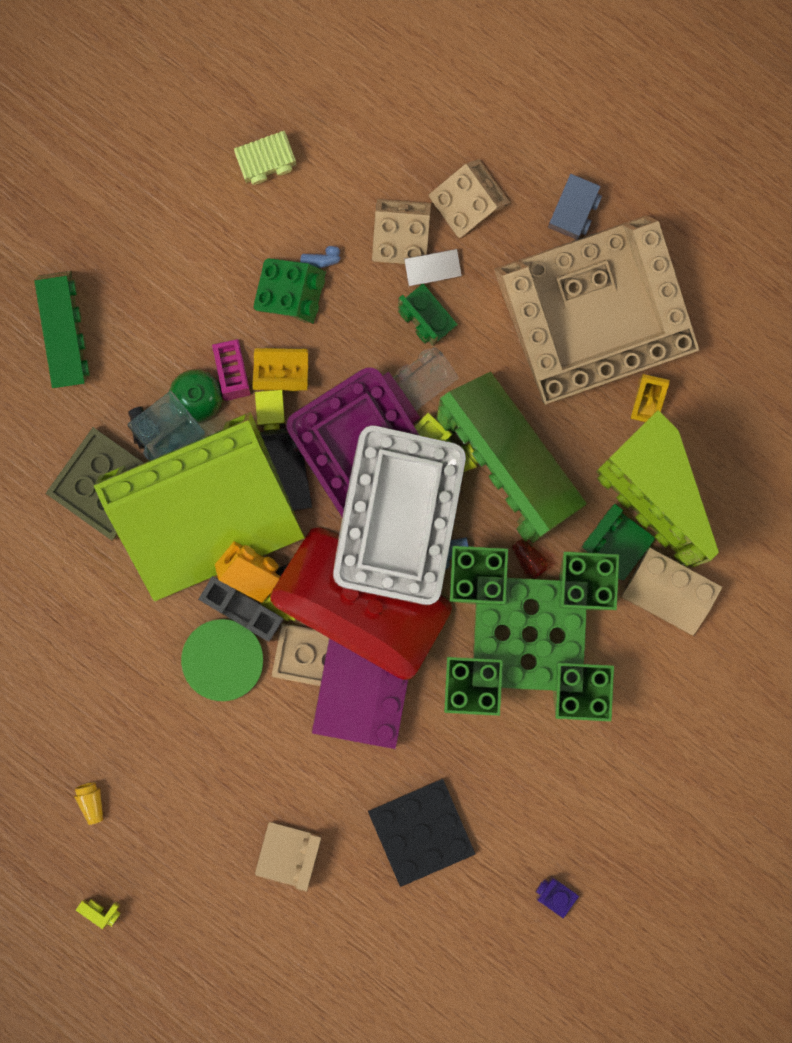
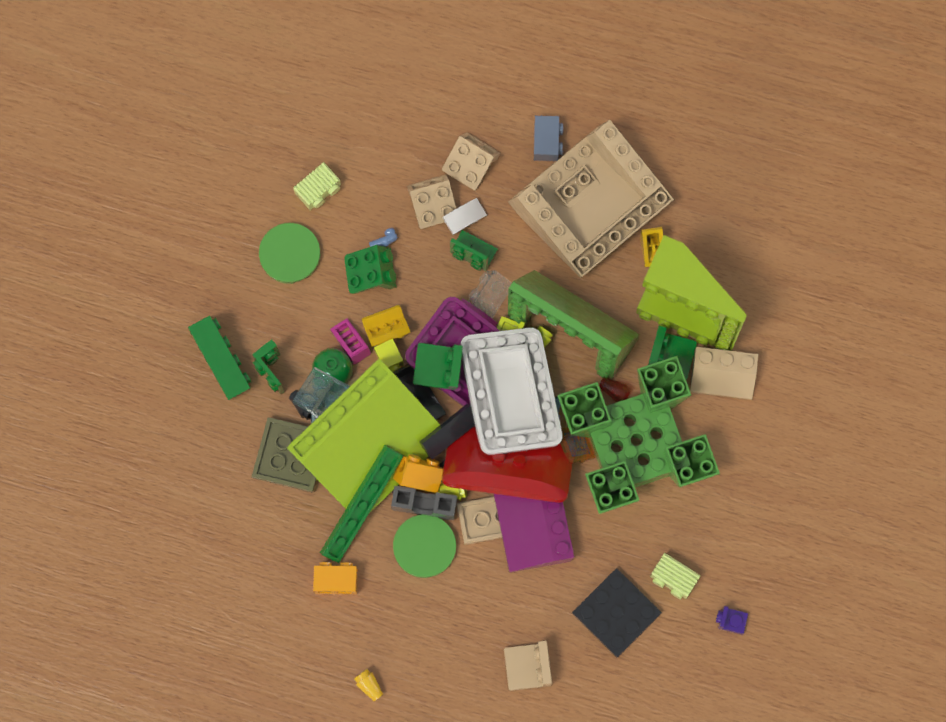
camera: 15 degrees left, 10 degrees down
(99, 659) = (335, 579): none -> light orange brick
(118, 350) = (266, 356): none -> green bracket
(164, 581) = (361, 504): none -> green tile
(199, 228) = (289, 253): none -> bright green tile
(303, 535) = (448, 432): none -> black tile
(321, 449) = (437, 366): none -> green bracket
(452, 616) = (576, 447): none -> piece
(509, 817) = (674, 576): none -> yellowish green brick

